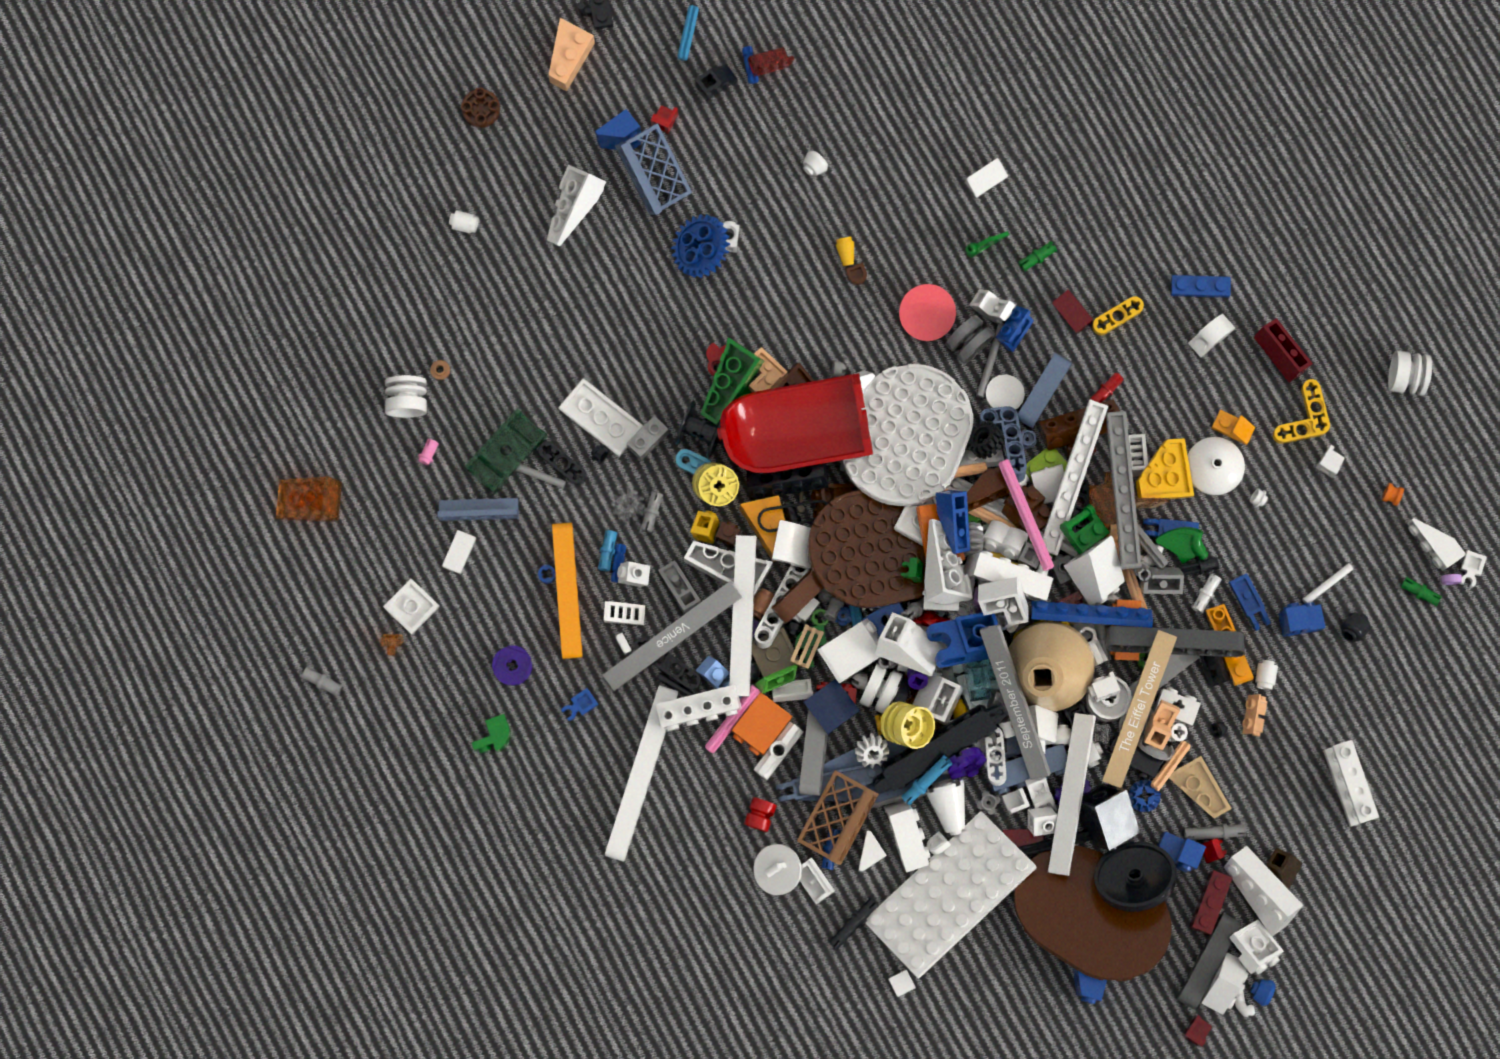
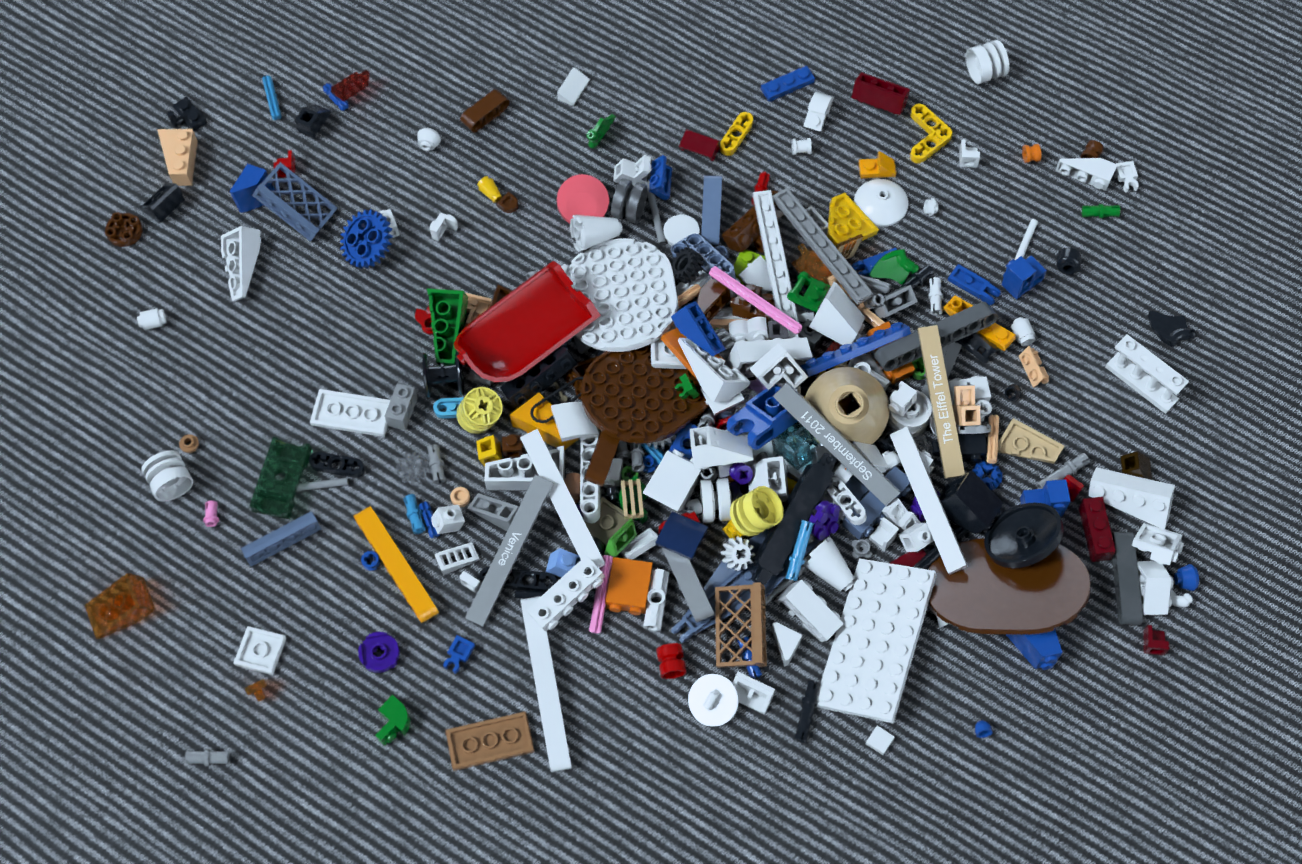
camera: 25 degrees left, 15 degrees down
(459, 552) = (281, 582): white tile -> none
(529, 97) = (163, 202): none -> black slope
(567, 798) = (489, 741): none -> medium nougat tile
(599, 453) = (365, 440): black plate -> none
(657, 555) = (460, 496): none -> light nougat tile
(776, 266) = (442, 222): none -> white bracket
(886, 159) = (485, 110): none -> reddish brown beam
(920, 351) = (593, 230): none -> white cone
(937, 843) = (840, 603): white tile -> none
(996, 1023) = (983, 729): none -> blue hinge
(1037, 256) = (647, 122): green pin -> none
(1172, 365) = (801, 146): none -> white bush
(1408, 746) = (1170, 328): none -> black arm
(1451, 579) = (1117, 190): lavender tile -> none
(1453, 525) = (1093, 150): none -> reddish brown wheel

